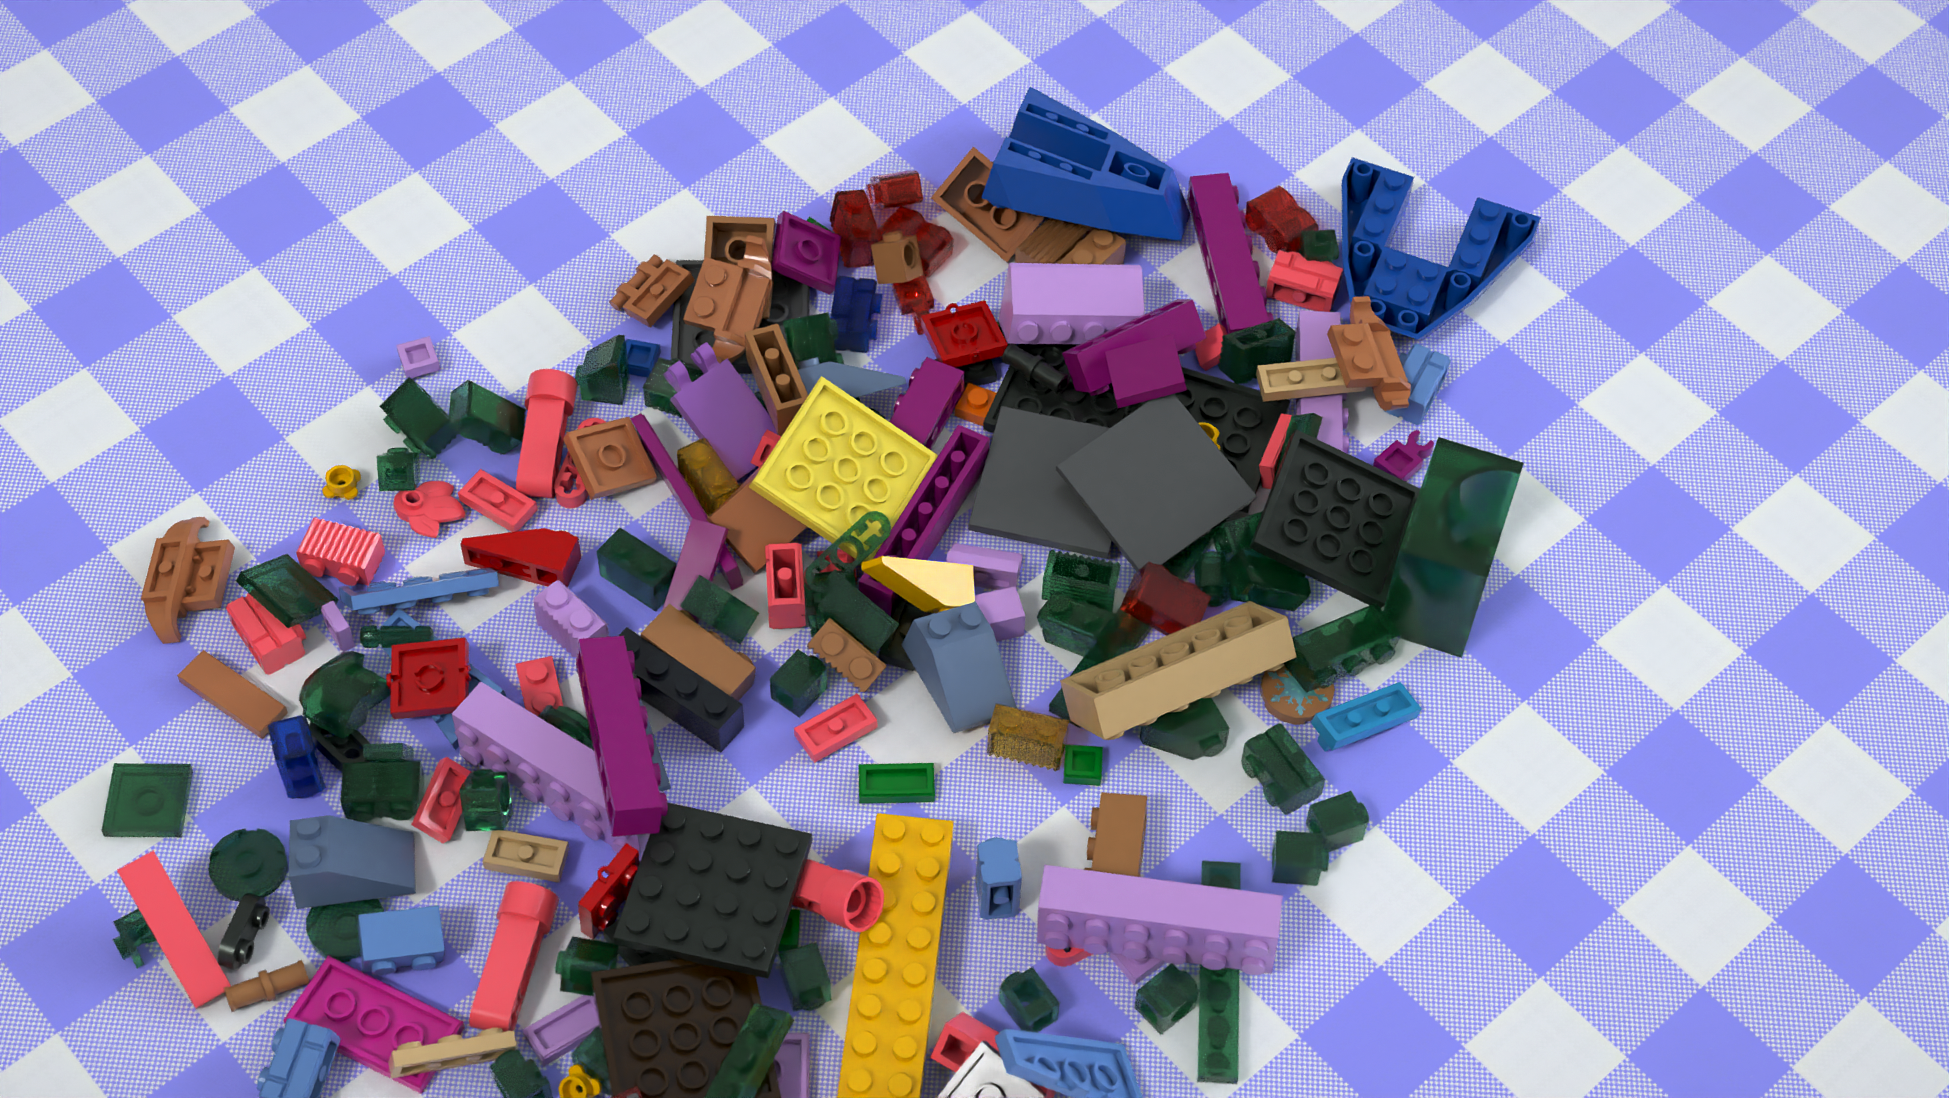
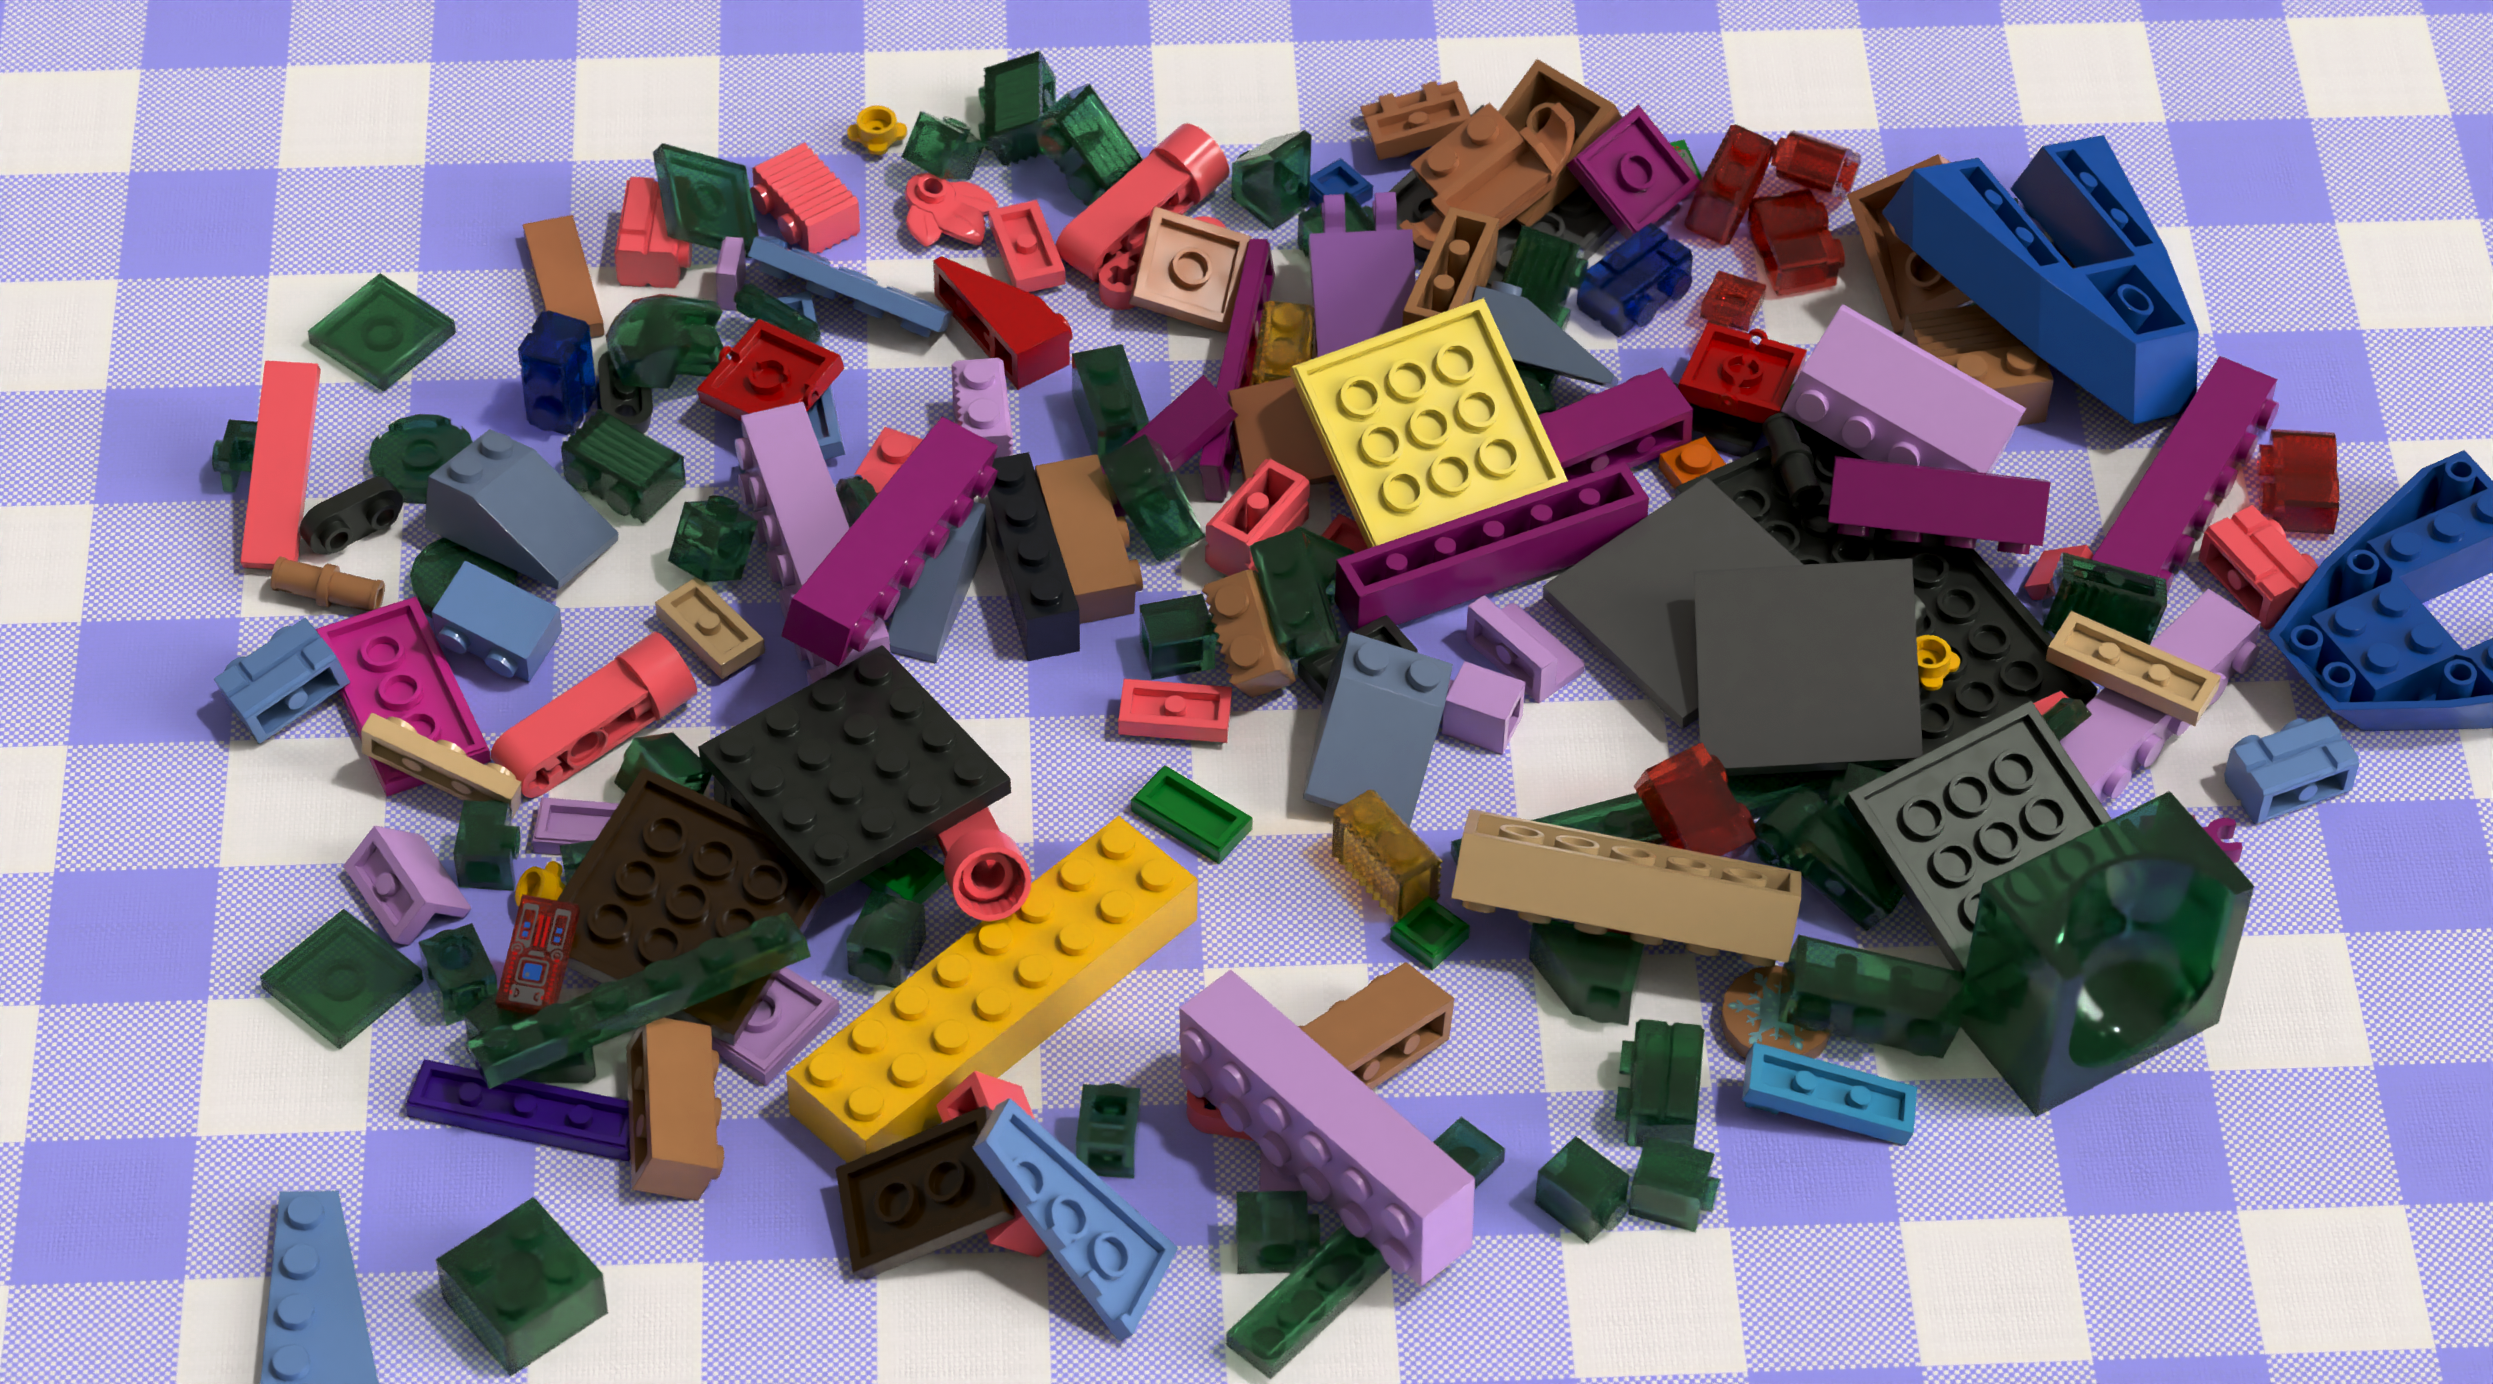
camera: 40 degrees right, 5 degrees down
(184, 576) = (620, 128): nougat plate -> none
(388, 752) = (655, 425): clear green tile -> none
(418, 357) = (1083, 45): lavender plate -> none
(442, 801) = (654, 524): coral plate -> none
(607, 894) = (730, 700): red plate -> none
(859, 527) = (1366, 532): clear green beam -> none
(896, 258) = (1742, 242): medium nougat brick -> none
(925, 583) = (1410, 605): yellow slope -> none
(998, 878) = (1187, 962): medium blue brick -> none
(1080, 627) = (1561, 773): clear green brick -> none
(1082, 579) = (1612, 725): clear green brick -> none
(1145, 370) = (1901, 524): magenta tile -> none
(1319, 245) = (2314, 530): clear green bracket -> none
(1369, 356) = (2236, 686): nougat plate -> none

